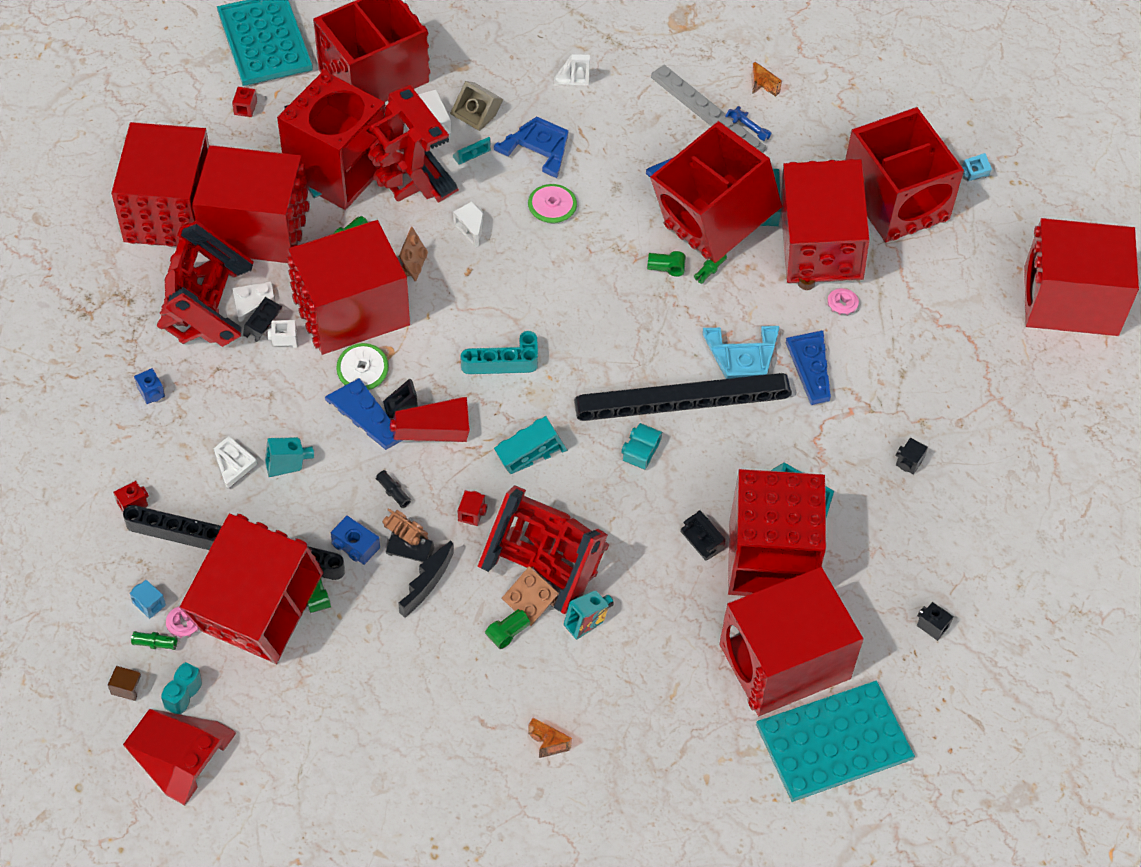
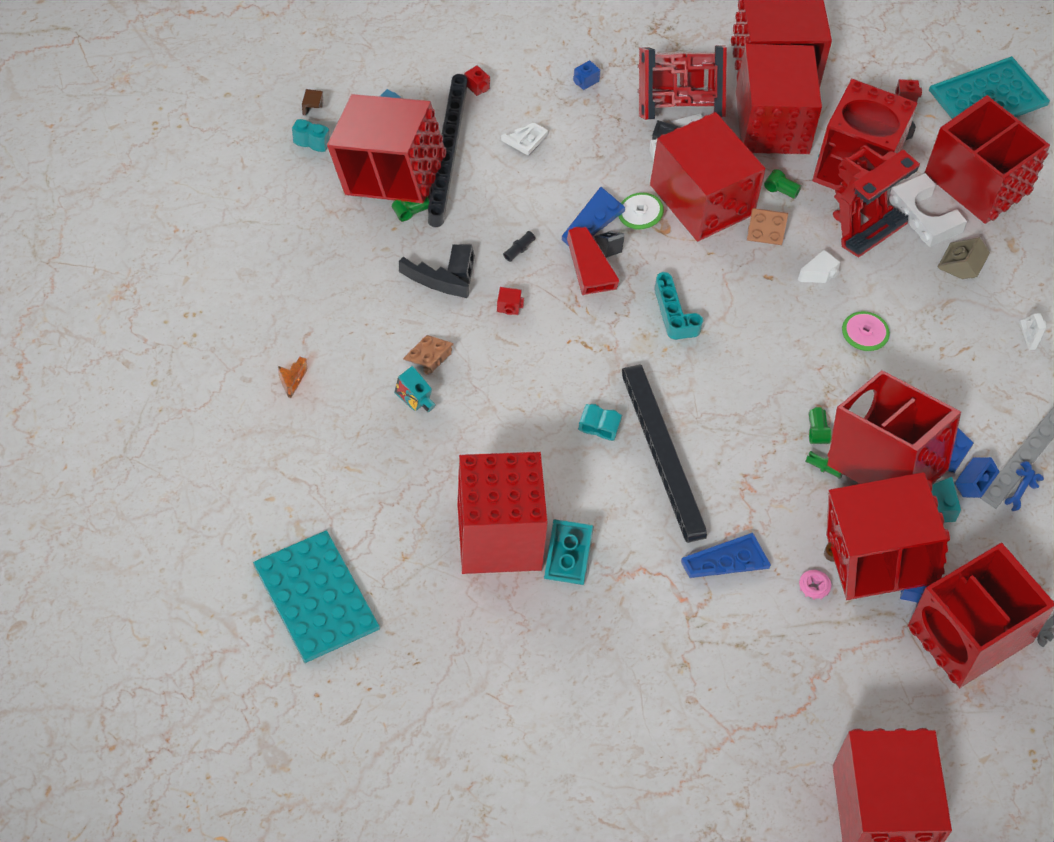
camera: 80 degrees right, 0 degrees up
(176, 749) = (265, 141): red wedge -> none
(285, 455) = (534, 166): teal torso -> none
(350, 530) = (463, 225): blue brick -> none
(408, 530) = (476, 254): nougat hinge -> none
(472, 151) = (908, 263): teal slope -> none
(503, 632) = (391, 336): green piece -> none
(529, 445) = (582, 335): teal wedge -> none
(539, 137) = (942, 315): blue wing -> none
(545, 524) = (476, 344): red container -> none
(745, 358) = (719, 501): medium azure wing -> none
(790, 641) = (393, 533): red container -> none
(911, 455) = (635, 649): black brick -> none
(934, 620) = (449, 673): black brick -> none
(978, 162) = (1033, 700): medium azure brick -> none

